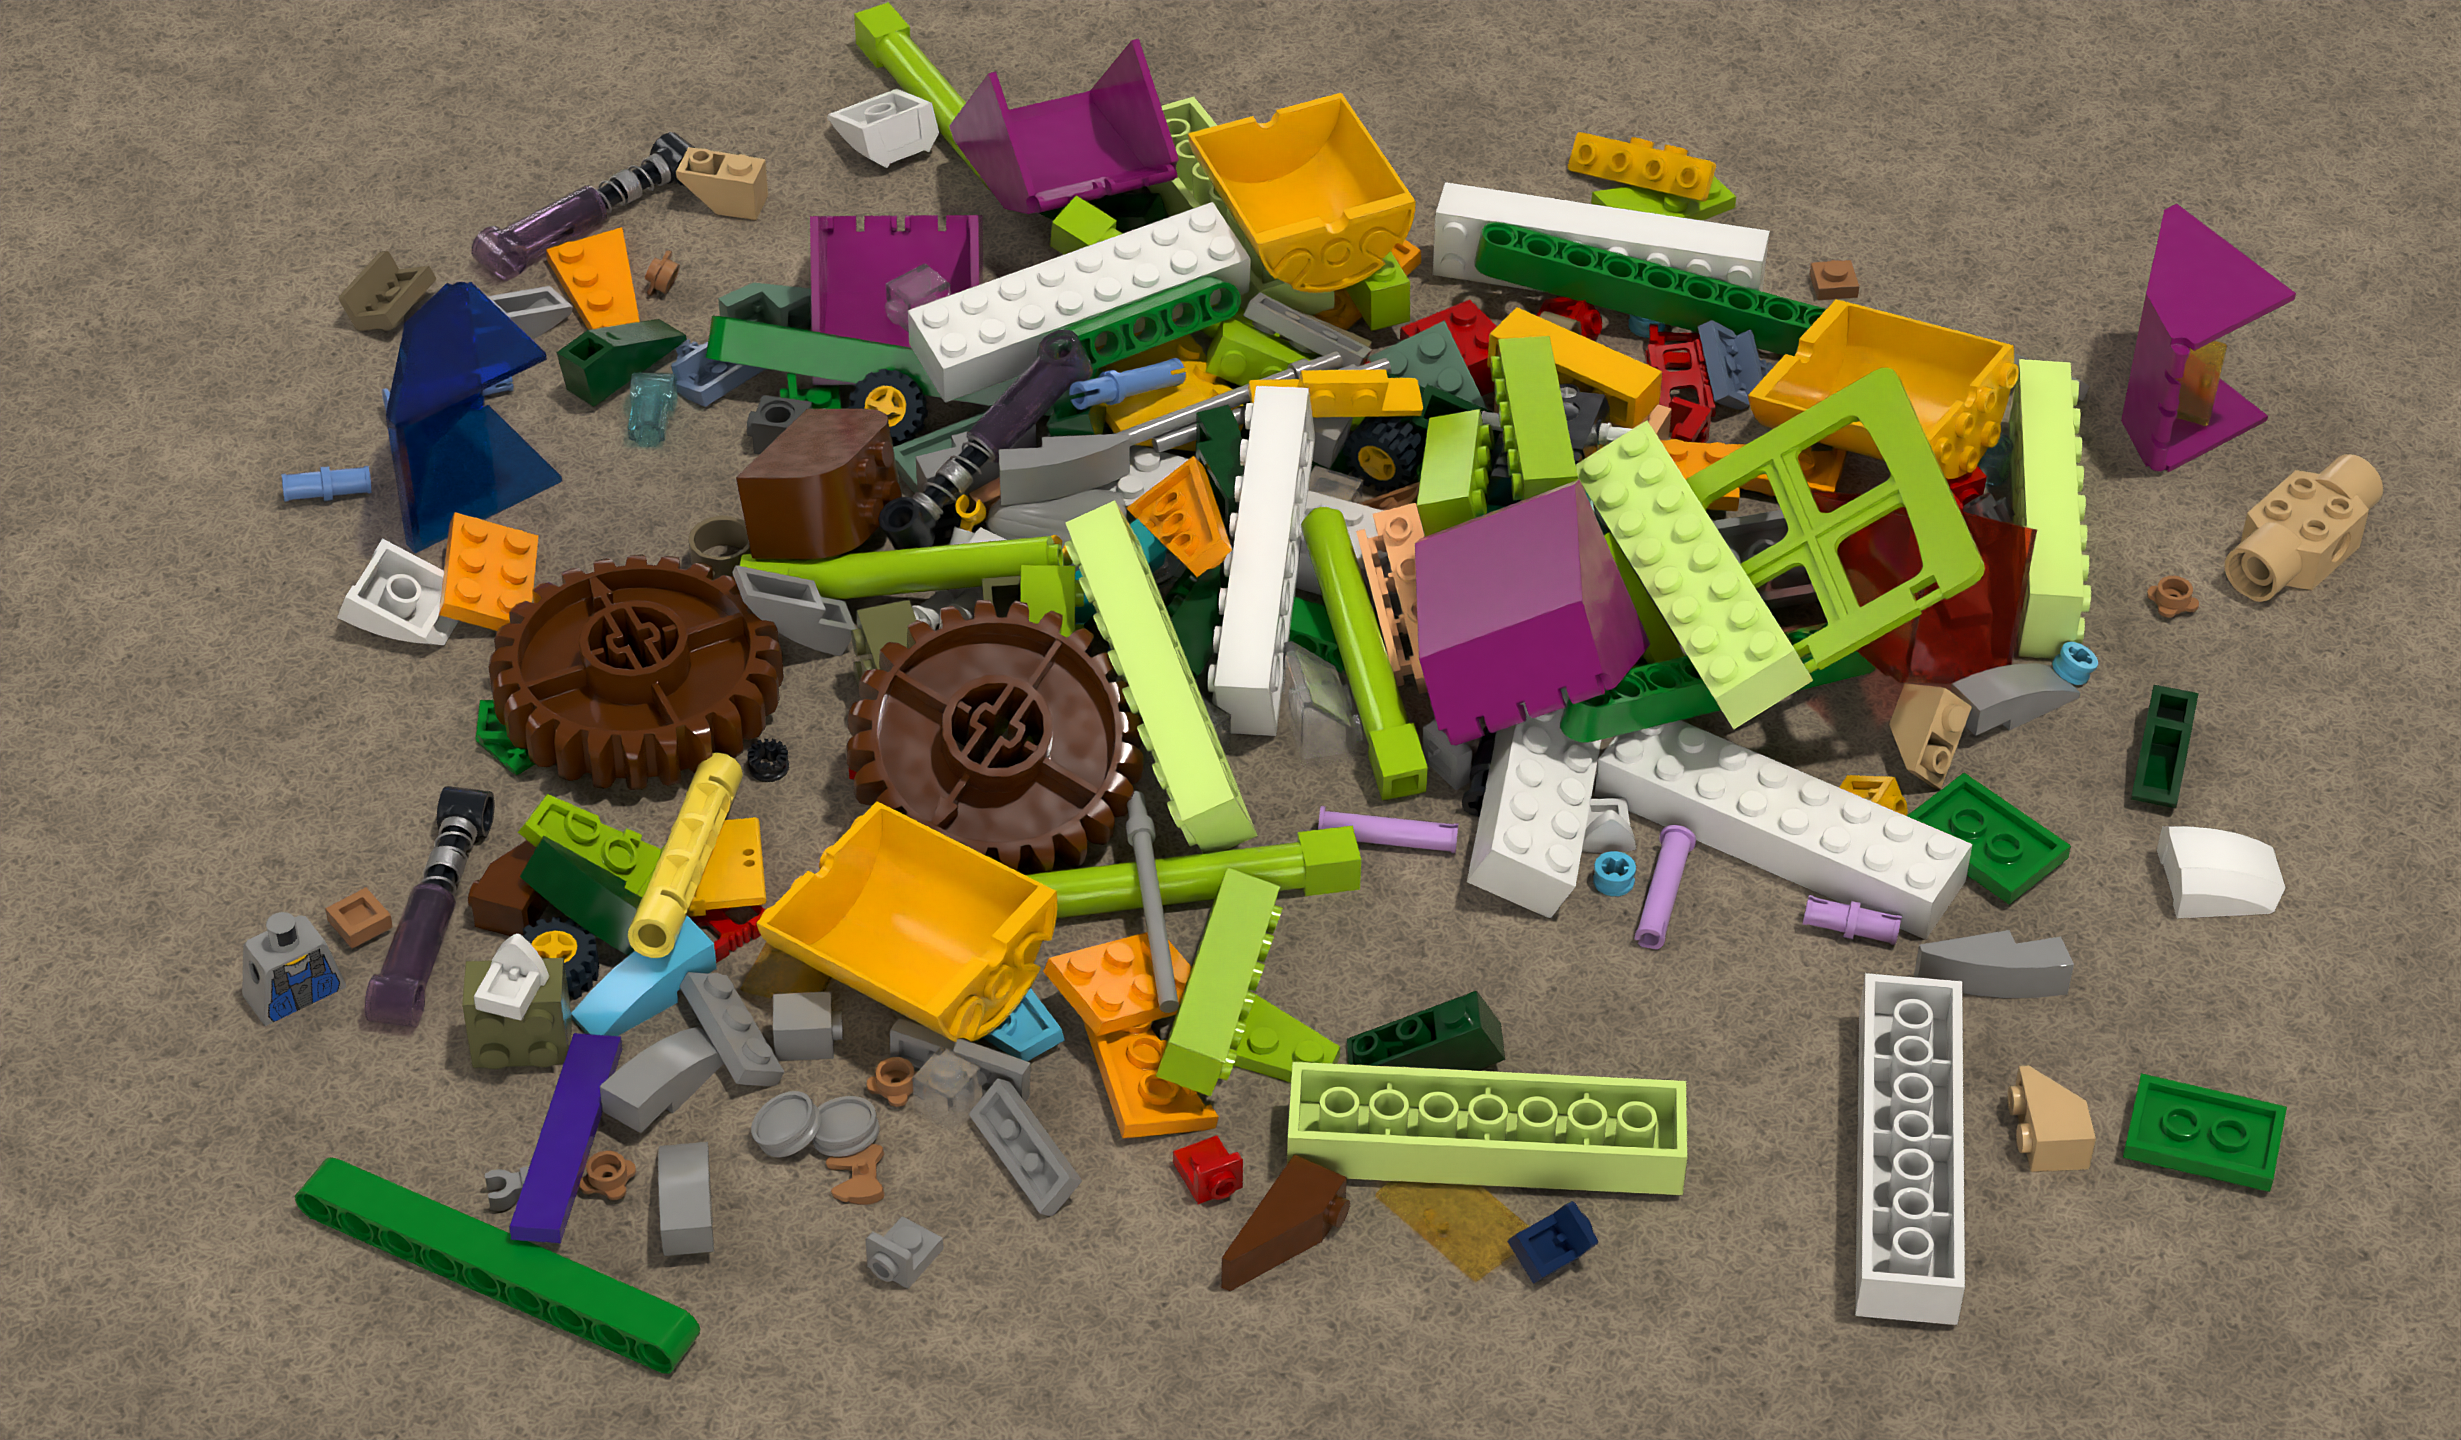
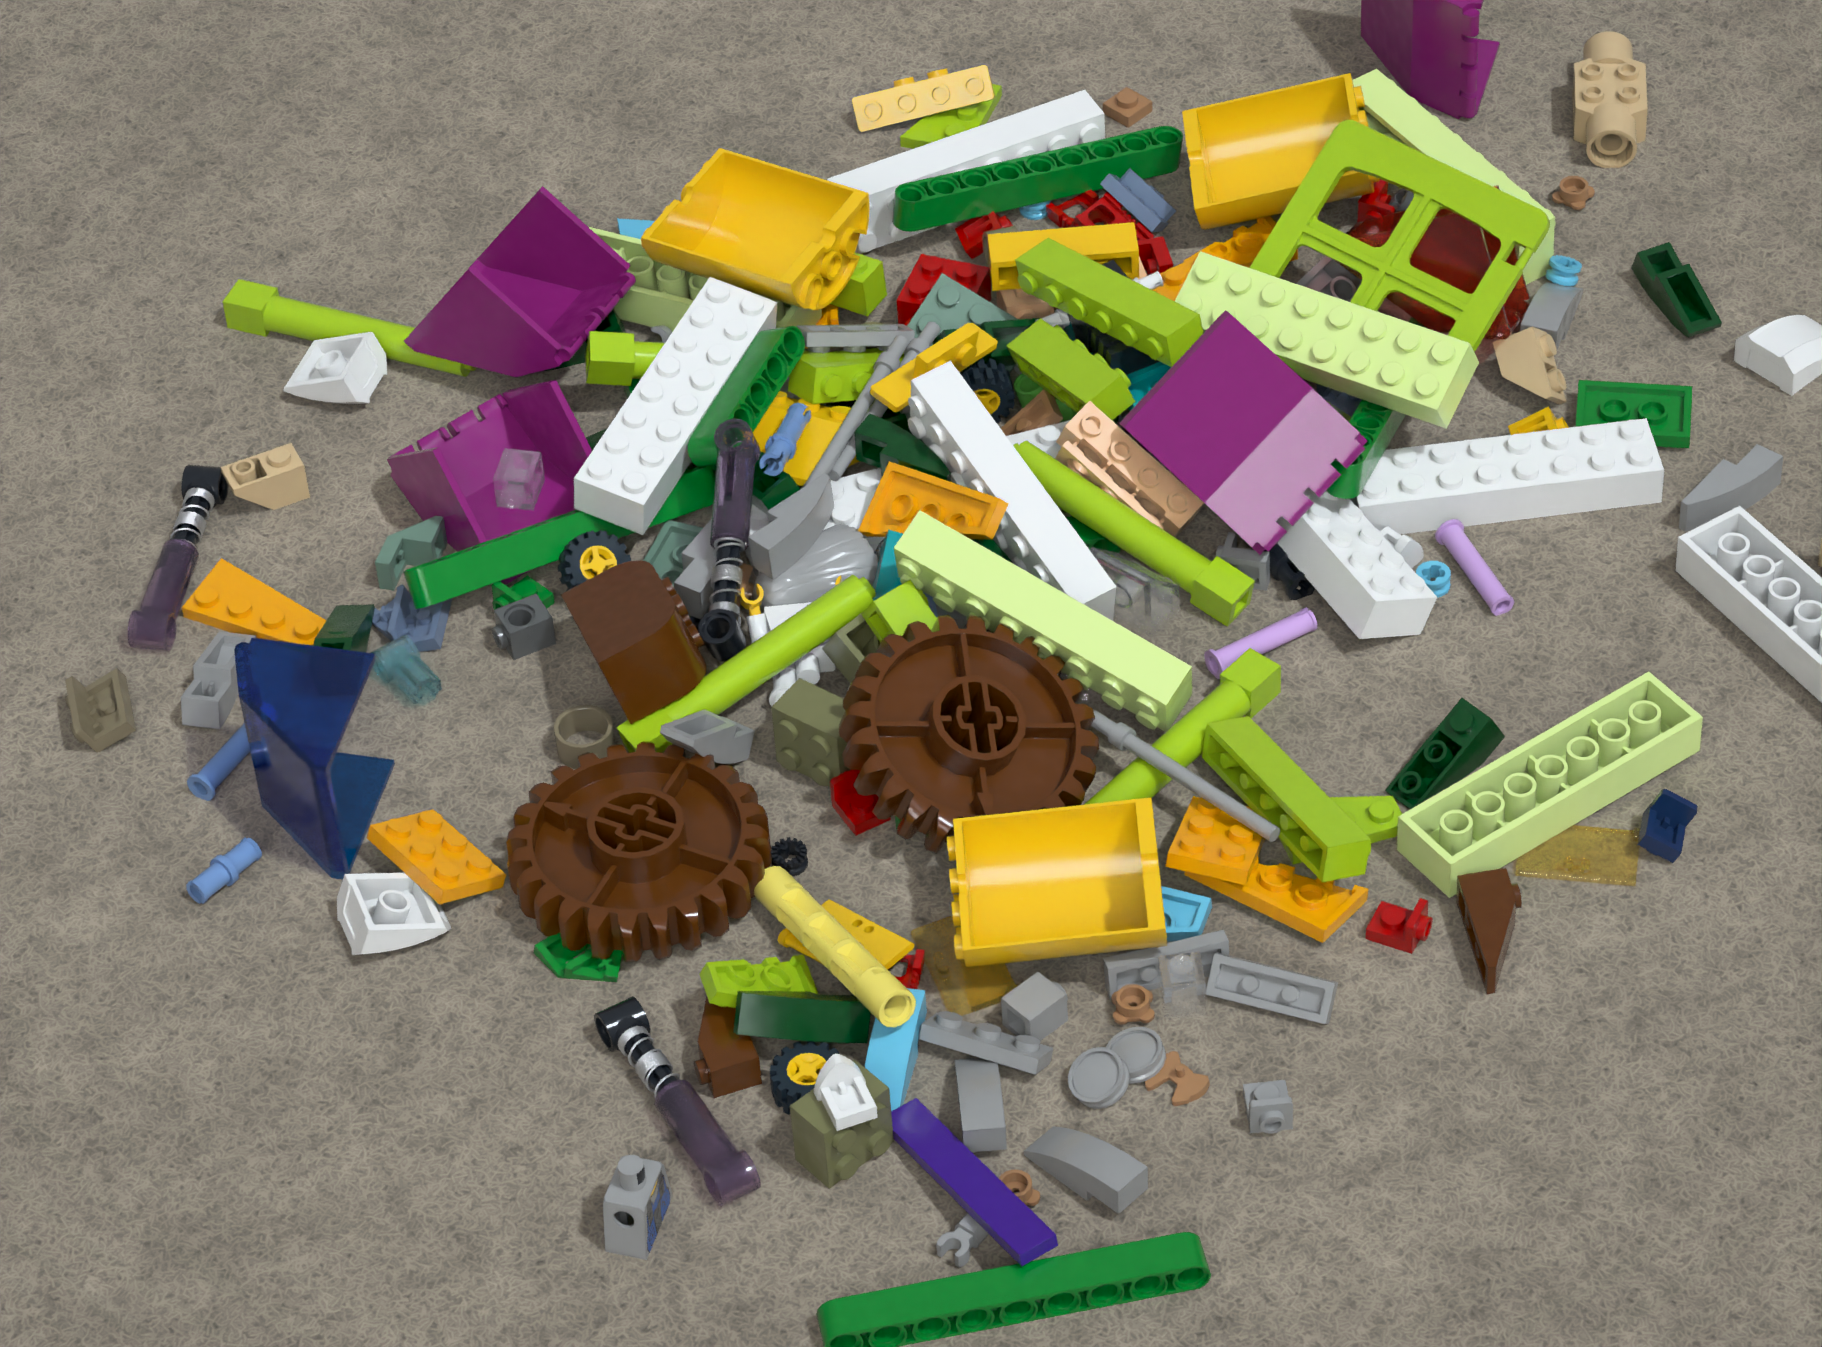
camera: 35 degrees left, 0 degrees up
(359, 917) = (632, 1138): medium nougat plate -> none
(662, 274) = (297, 573): medium nougat plate -> none
(1852, 920) = (1611, 515): lavender pin -> none

